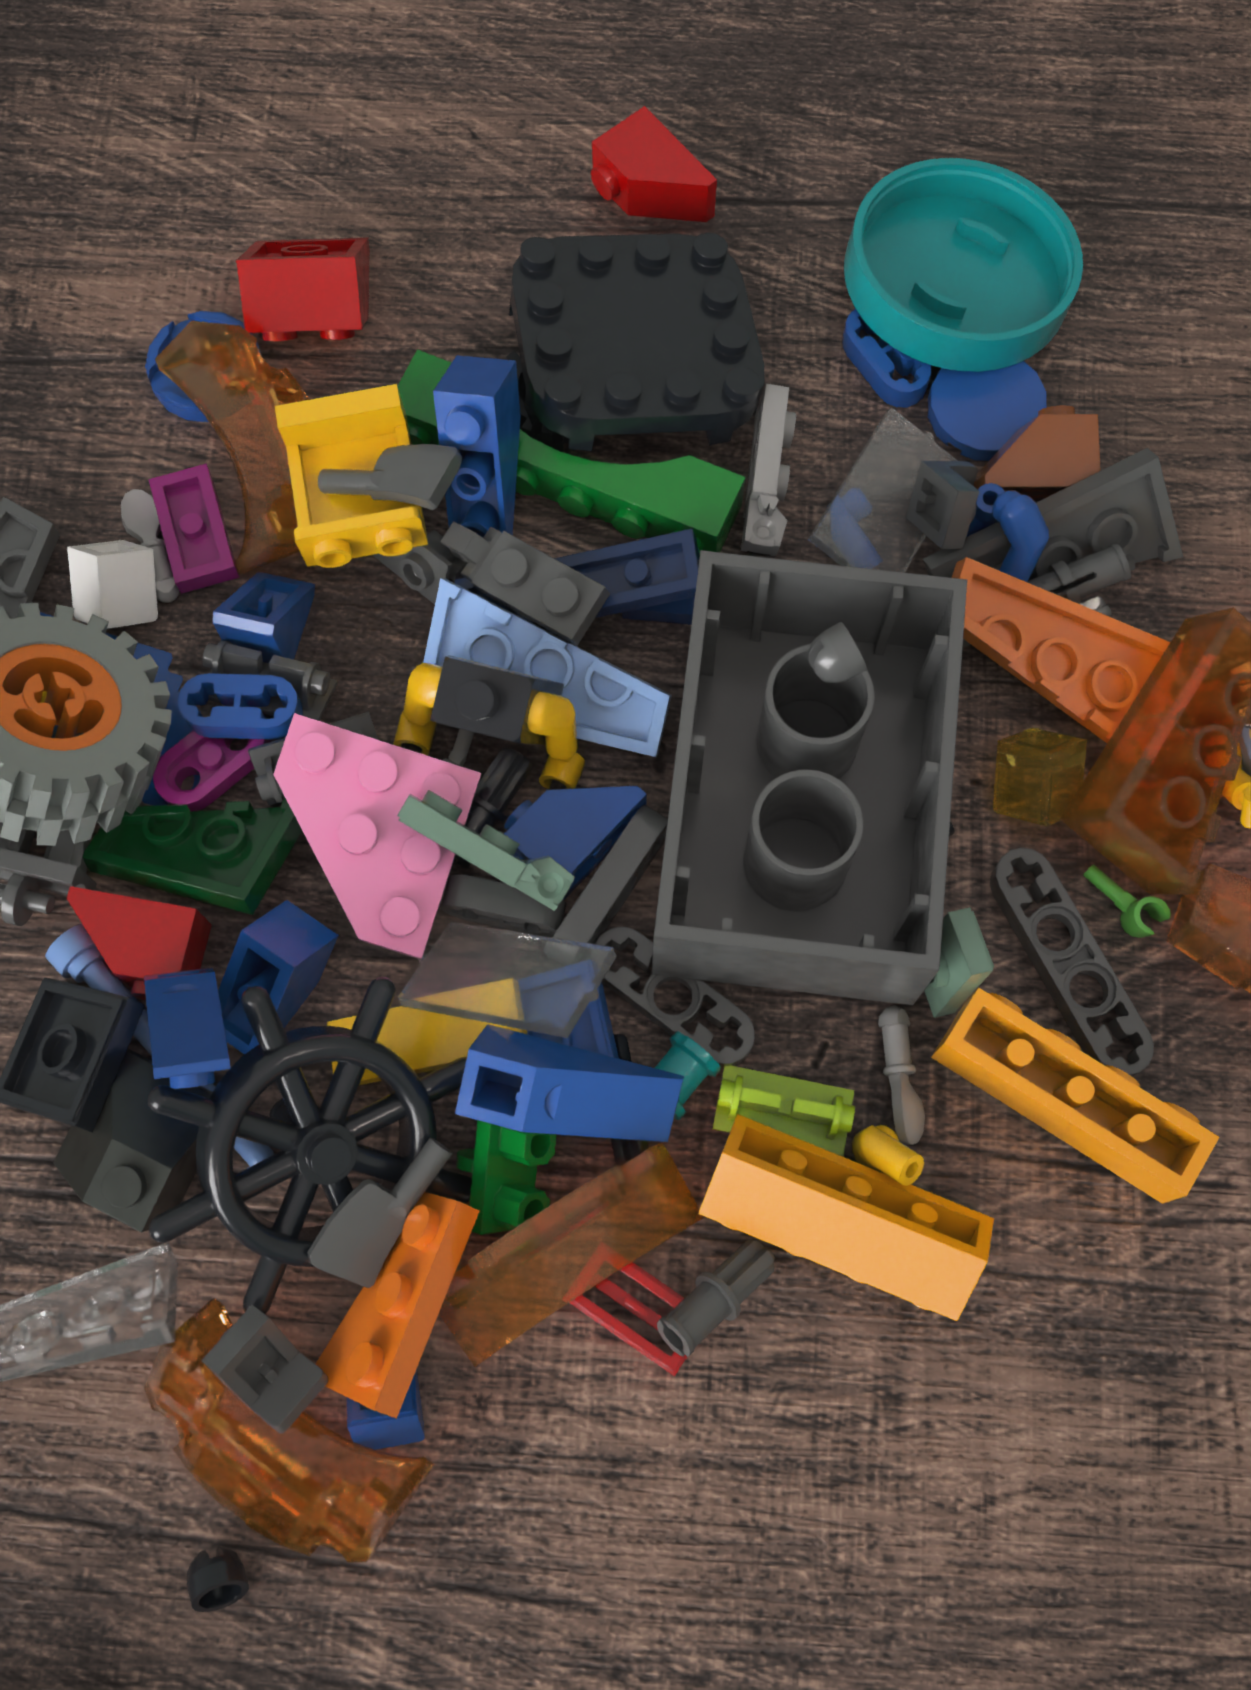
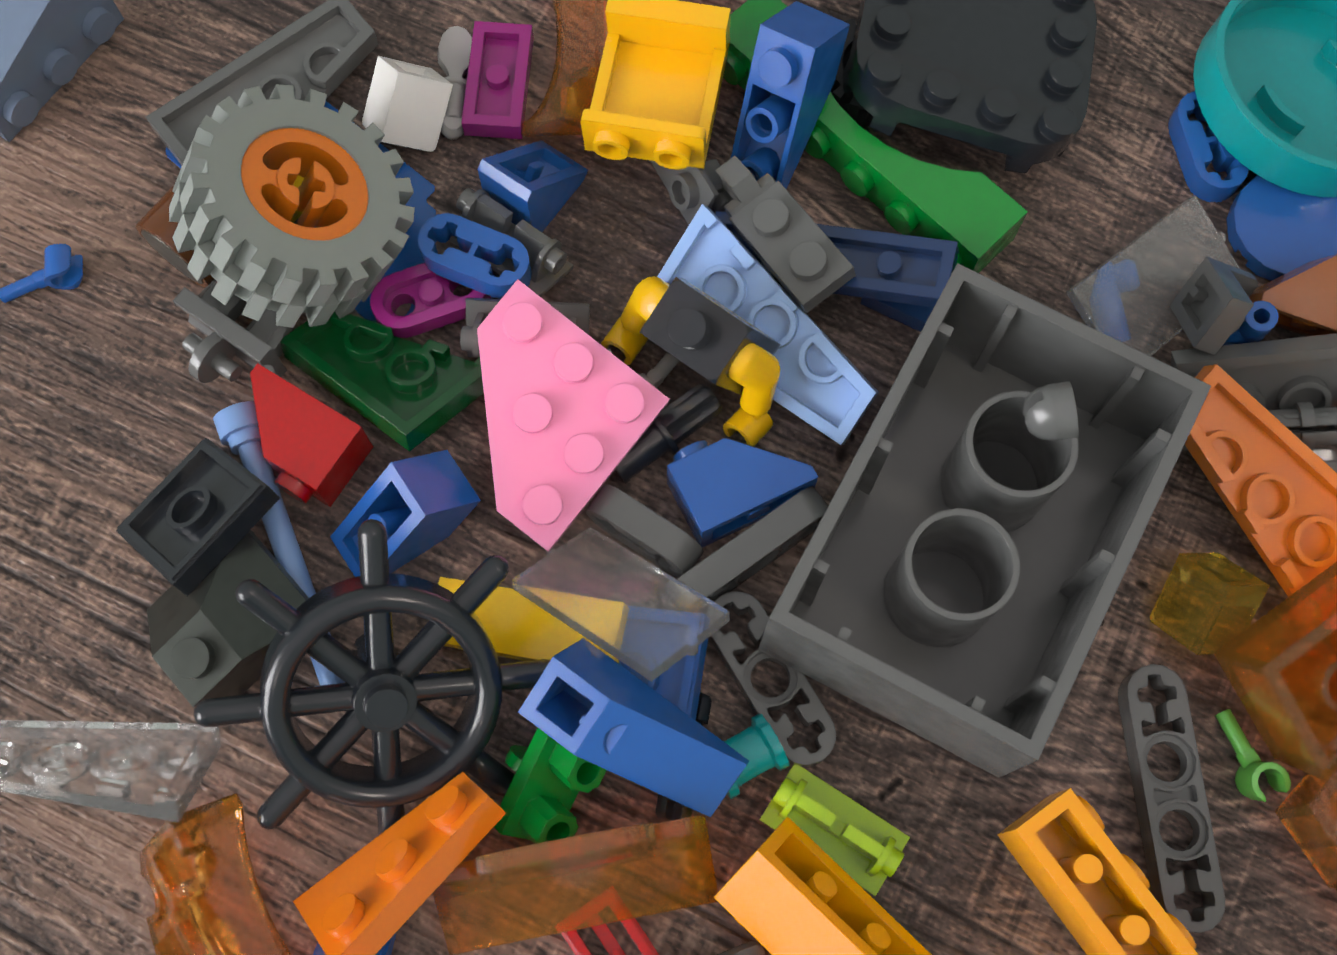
camera: 20 degrees right, 0 degrees up
(186, 1027) = (300, 534): blue slope -> none
(265, 1370) = (253, 881): dark grey bracket -> none
(371, 1219) = (404, 779): dark grey piece -> none
(401, 474) = (703, 94): dark grey piece -> none
(490, 850) = (646, 474): sand green hinge -> none
(766, 476) = (1048, 219): light grey hinge -> none
(881, 1150) = (912, 906): yellow arm -> none
(906, 1104) = (956, 871): light grey piece -> none
(963, 963) = (1065, 758): sand green plate -> none
(1024, 530) = (1284, 360): blue arm -> none

